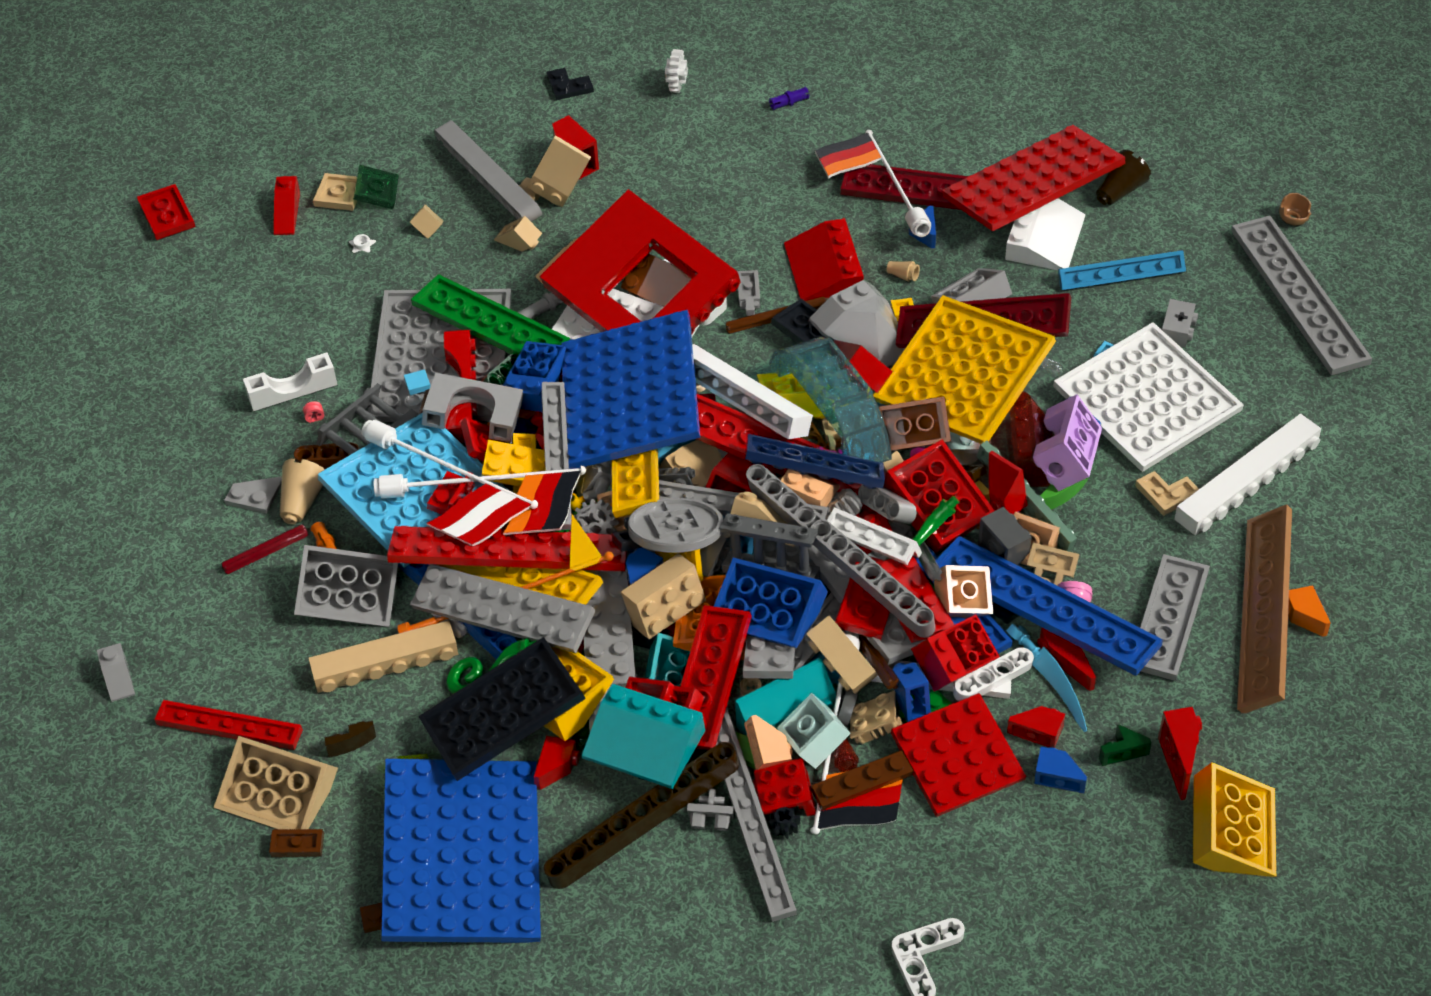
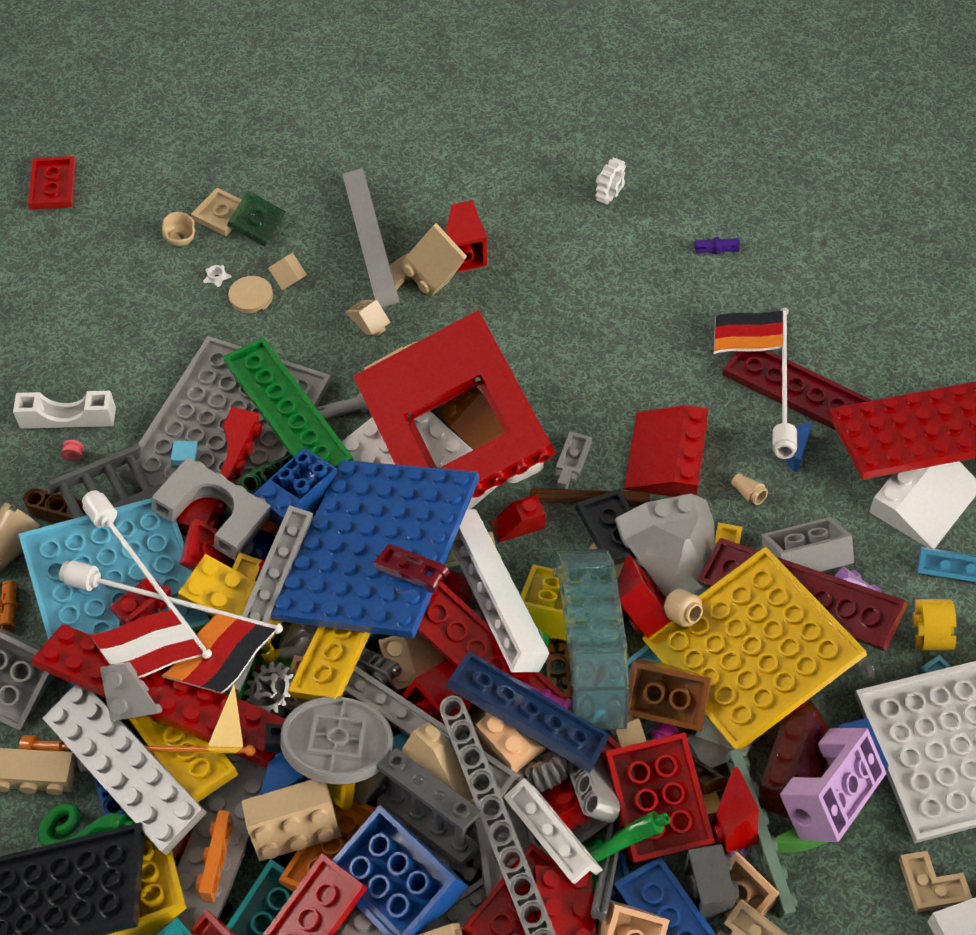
camera: 20 degrees right, 5 degrees up
(286, 205) = (168, 199): red slope -> none
(309, 211) = (178, 224): none -> tan hair
(402, 249) = (250, 294): none -> tan tile
(483, 551) = (126, 693): none -> light grey wing
(565, 87) = (497, 165): black plate -> none
(615, 641) = (214, 856): none -> orange plate
(675, 386) = (411, 567): none -> dark red plate
(731, 343) = (519, 519): none -> red slope
(898, 358) = (683, 607): none -> tan head
(1093, 318) = (934, 624): none -> yellow brick

